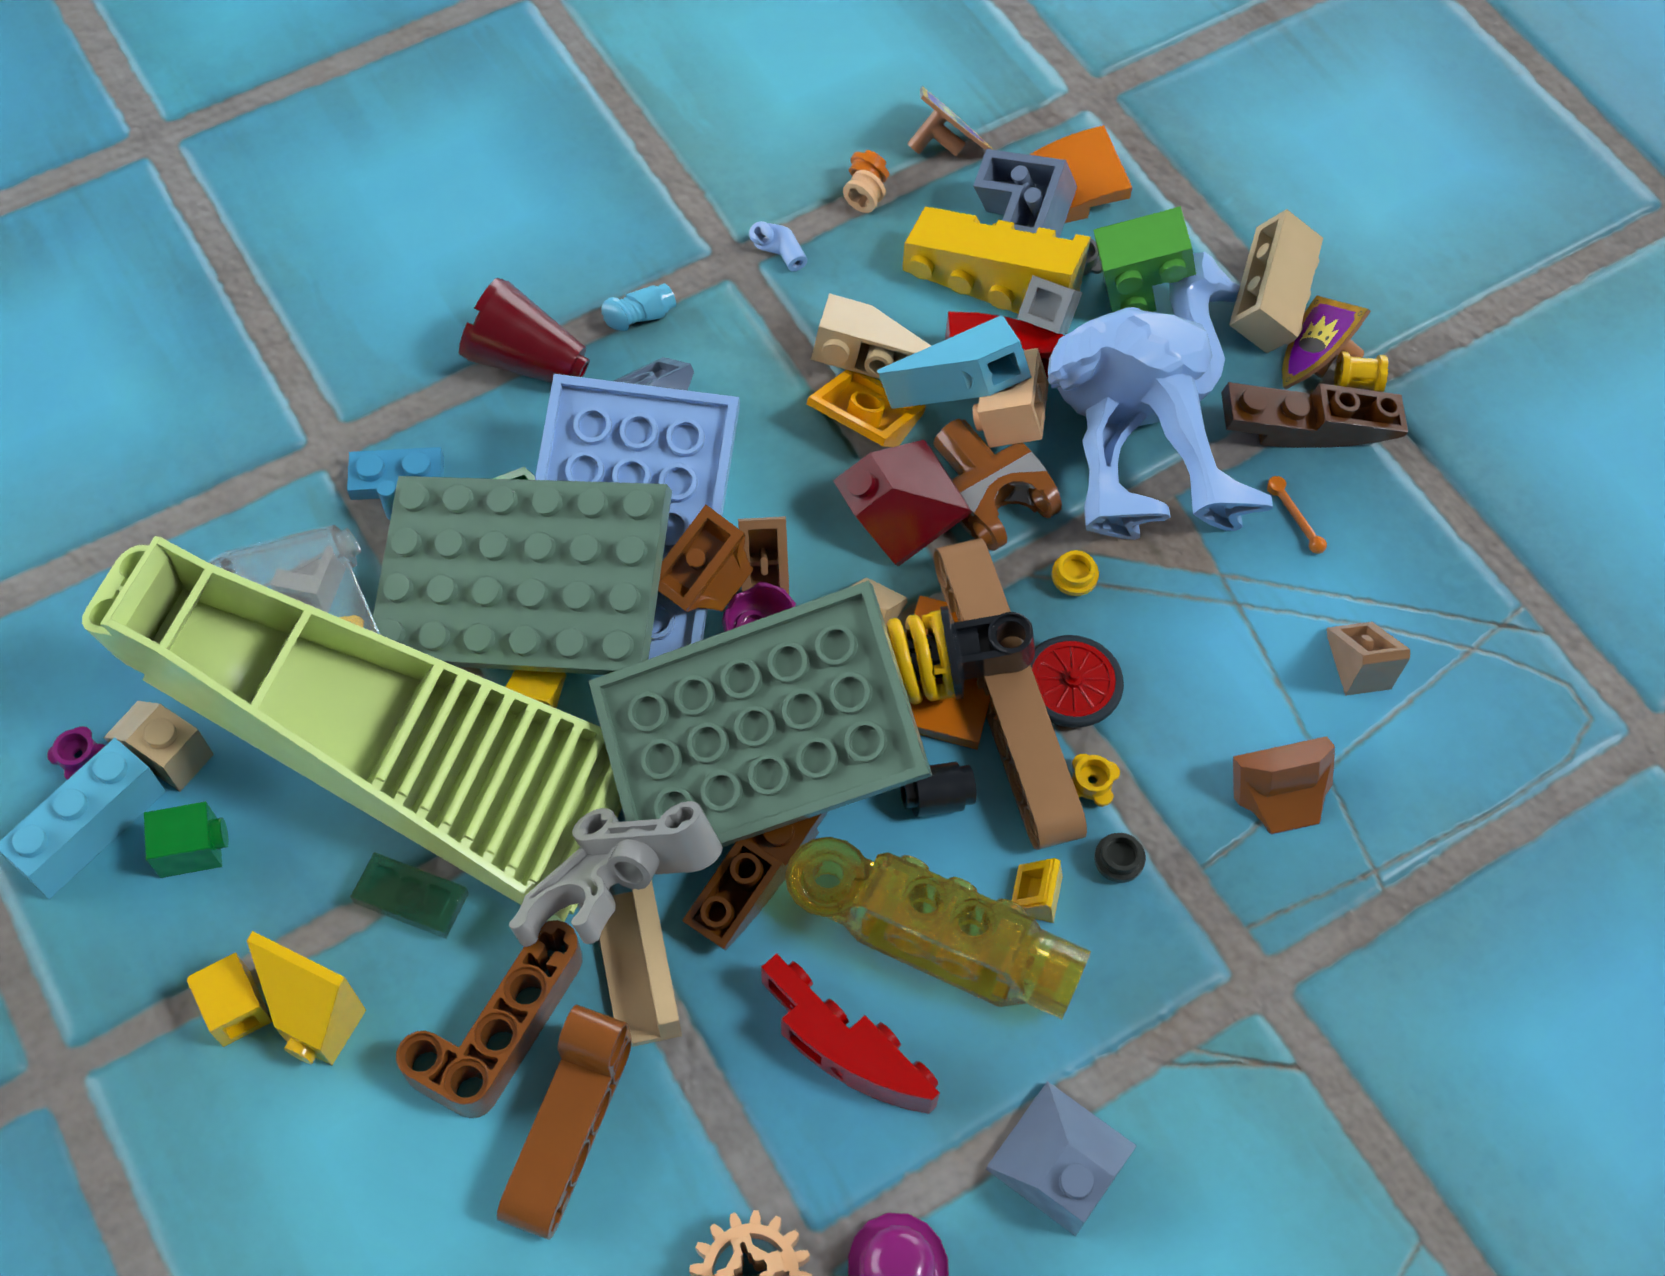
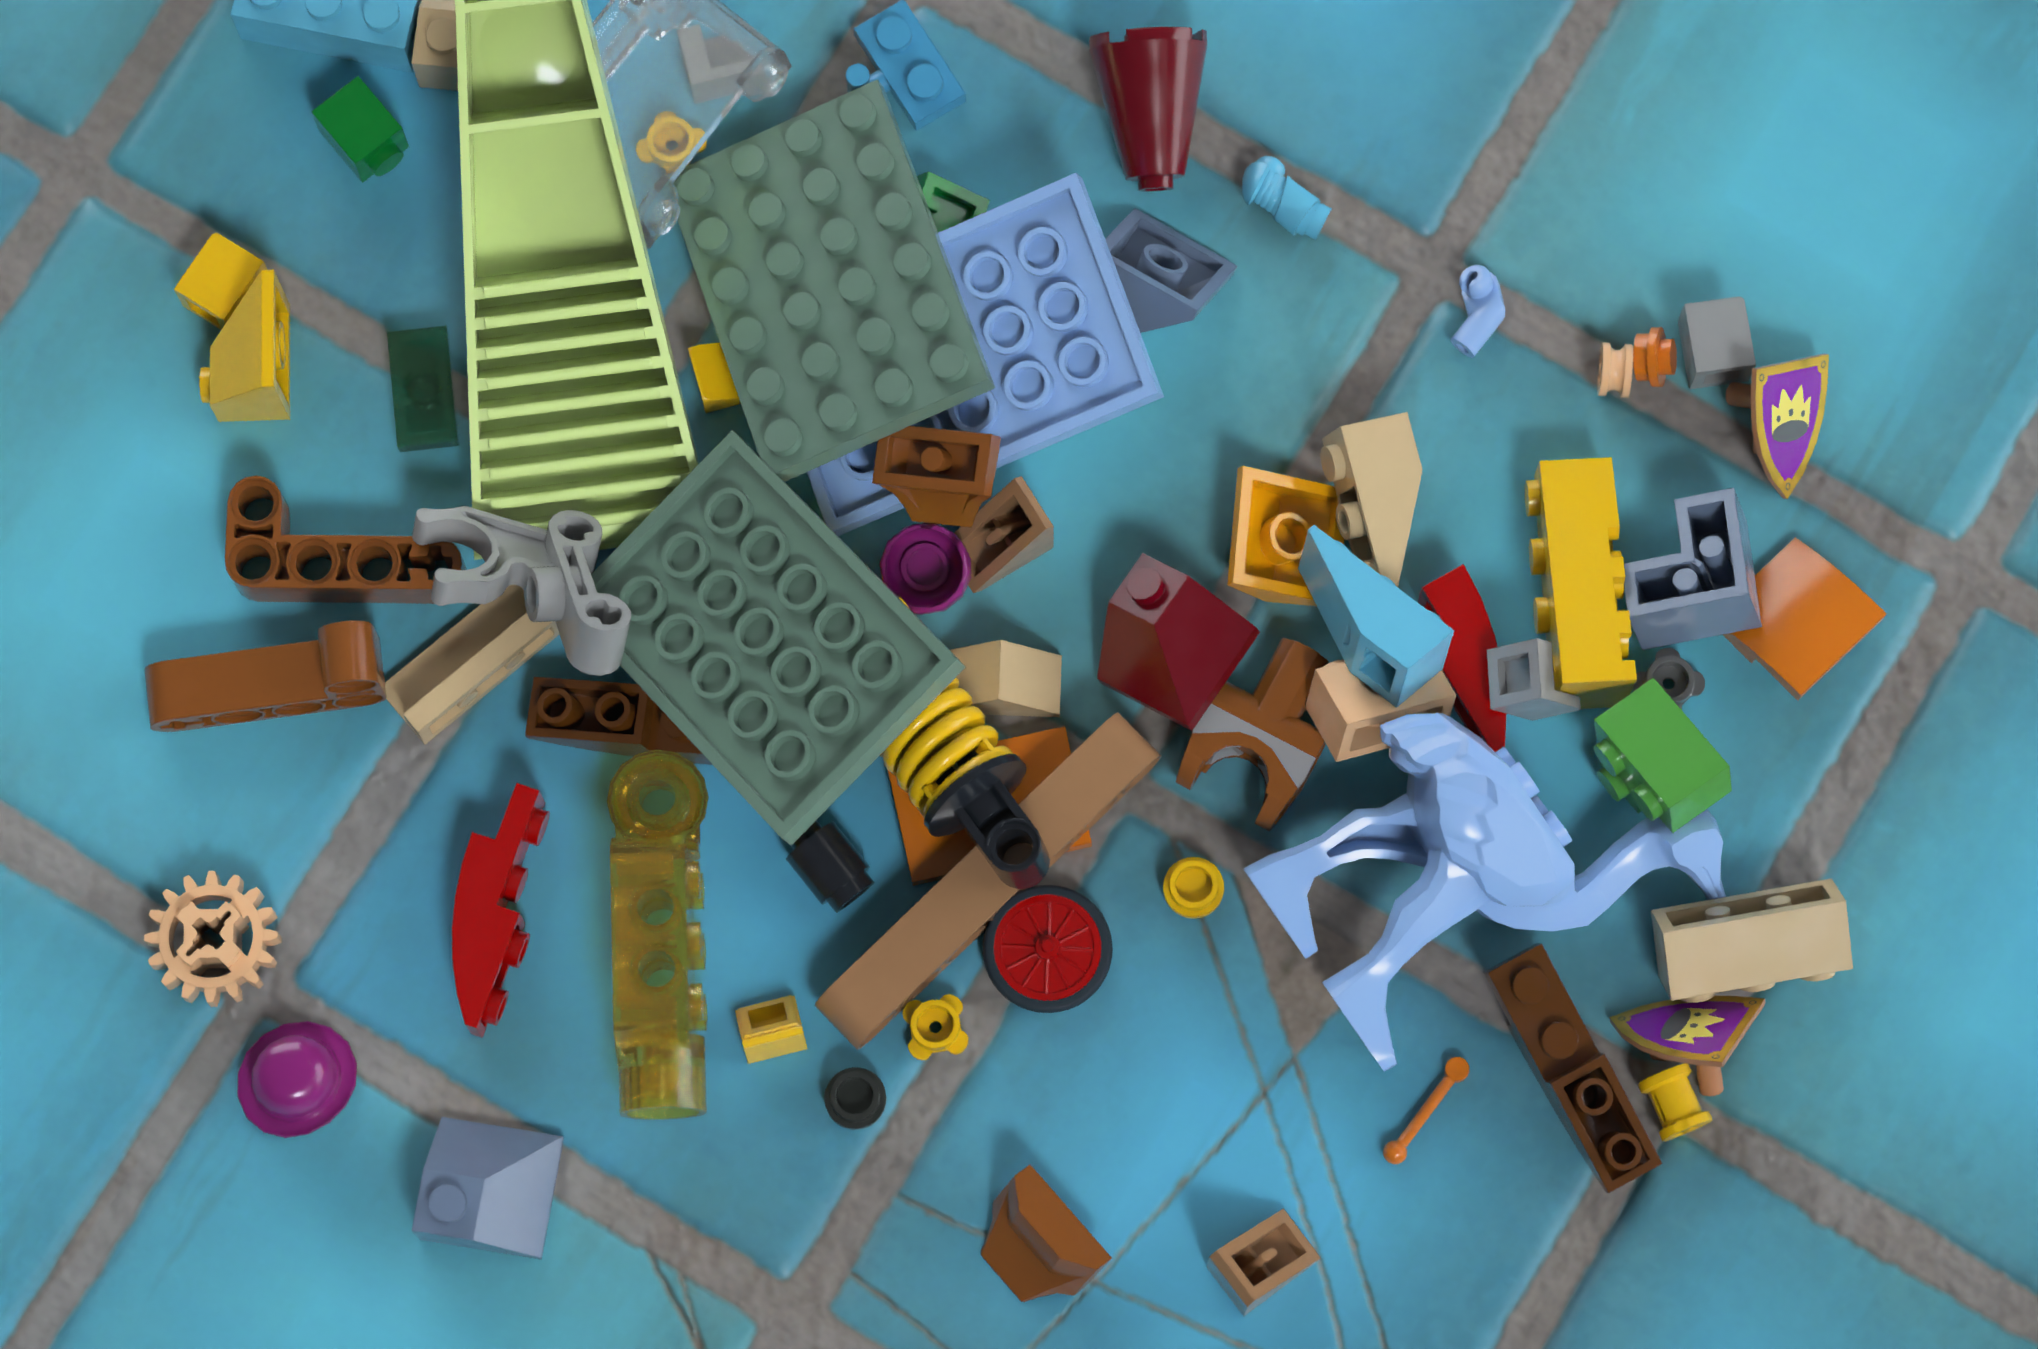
camera: 65 degrees right, 15 degrees up
(881, 131) = (1716, 342): none -> light grey panel

